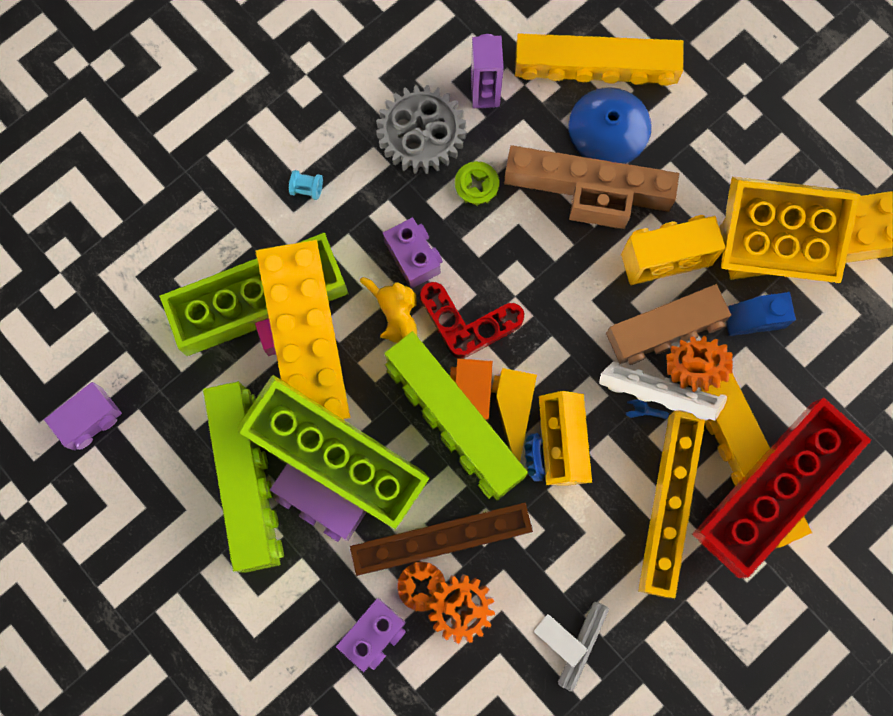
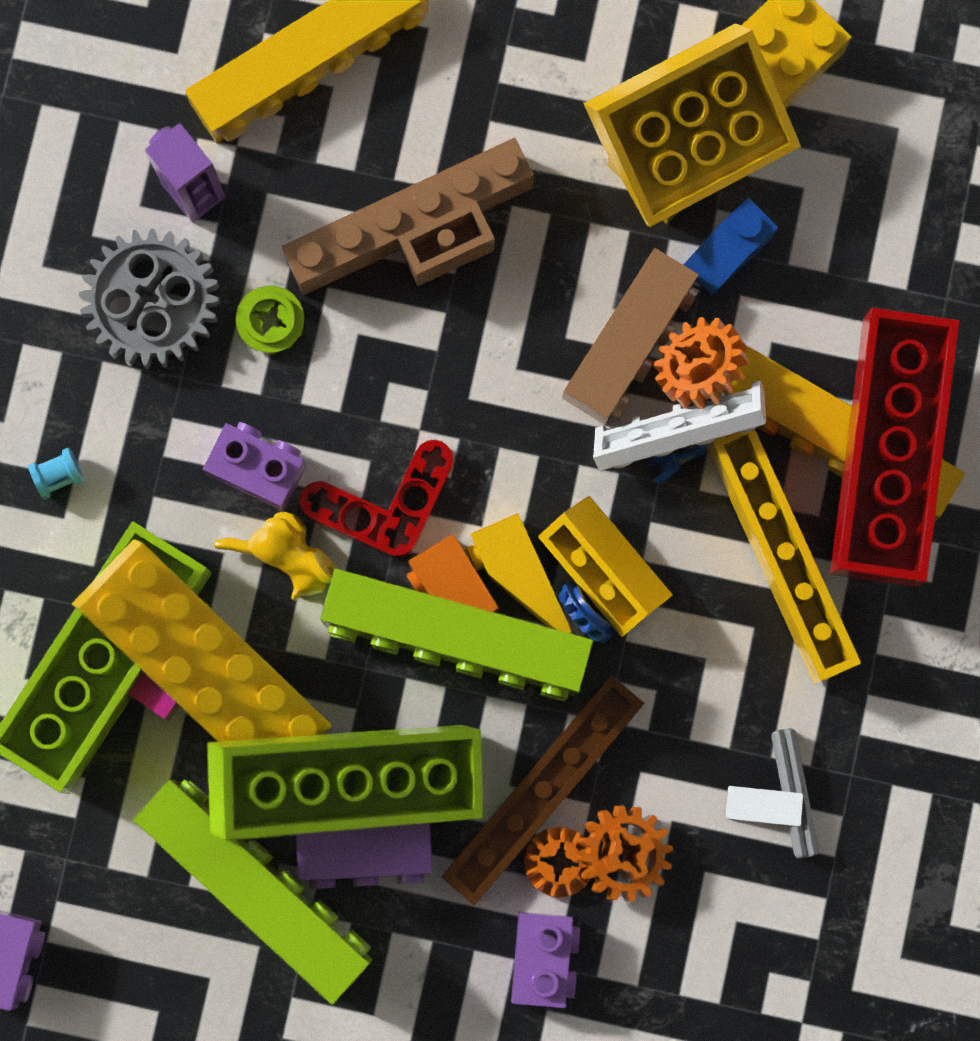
camera: 40 degrees left, 5 degrees up
(605, 139) = (386, 154): blue dish -> none
(672, 249) = (572, 240): yellow brick -> none

